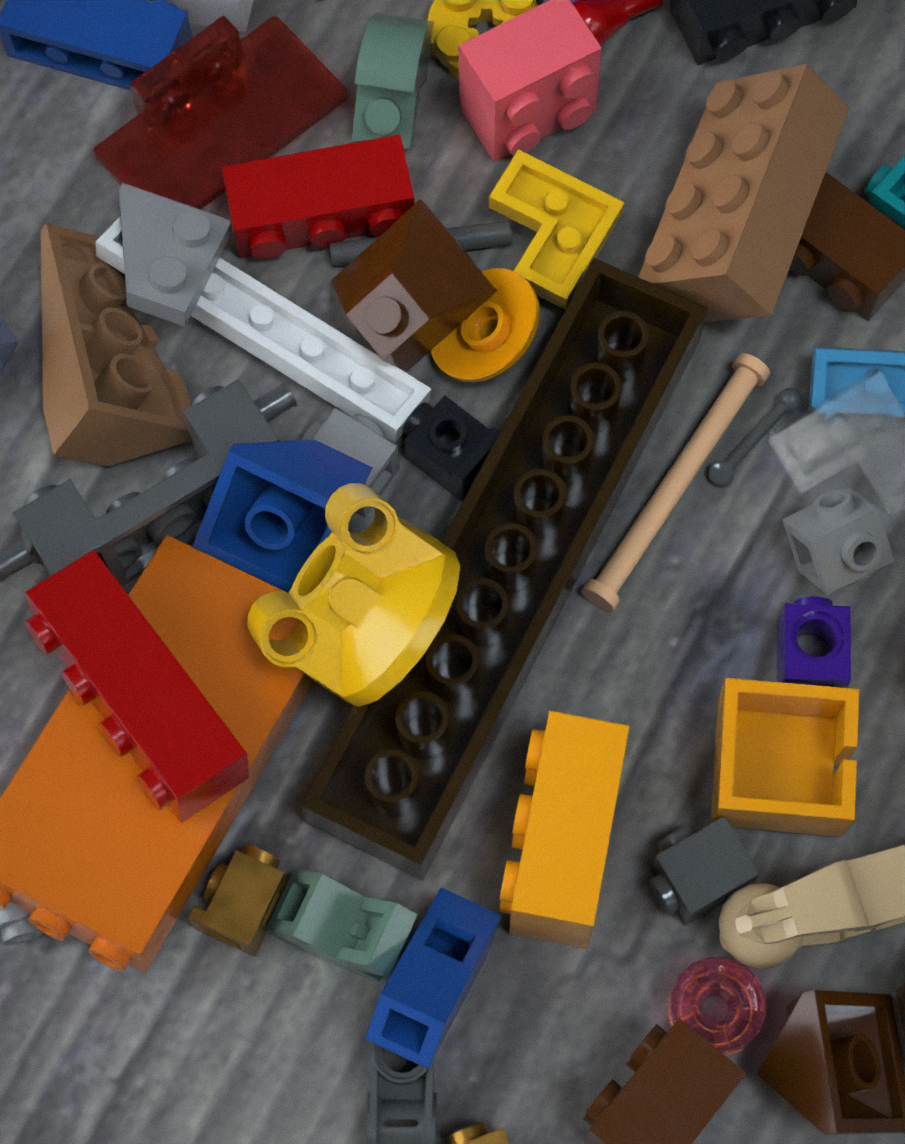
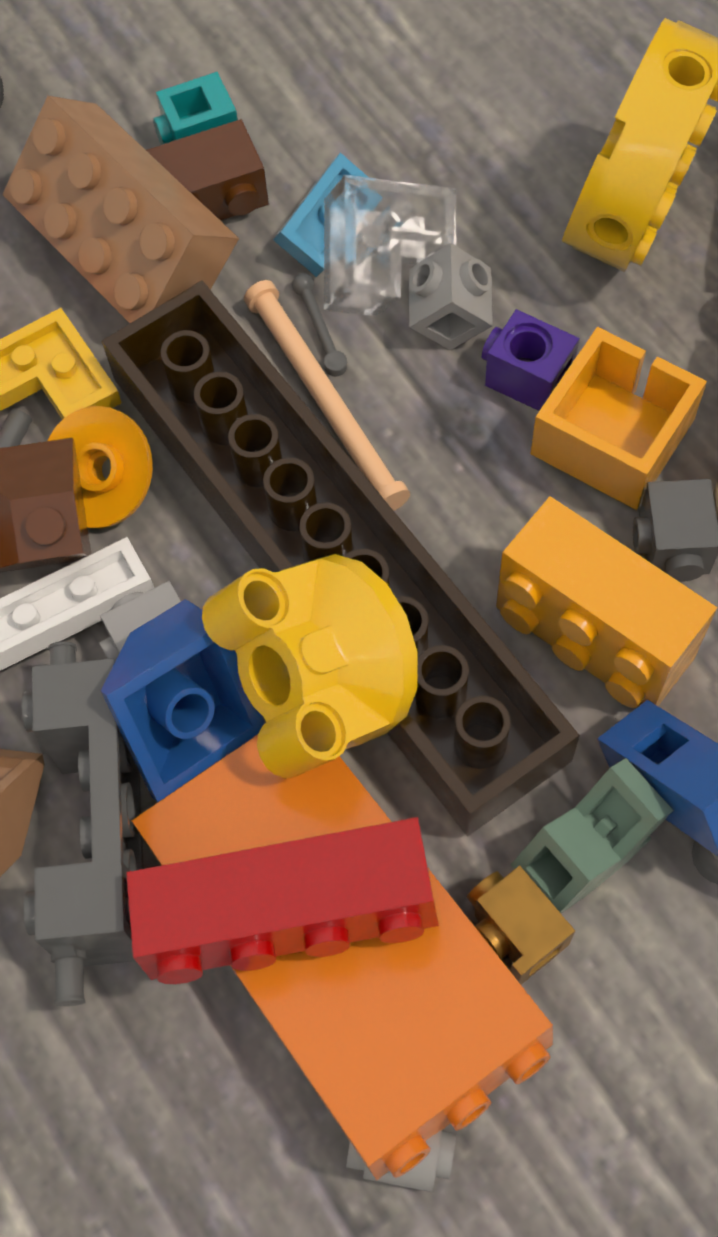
camera: 60 degrees left, 5 degrees down
(453, 463) = (190, 546): black brick -> none

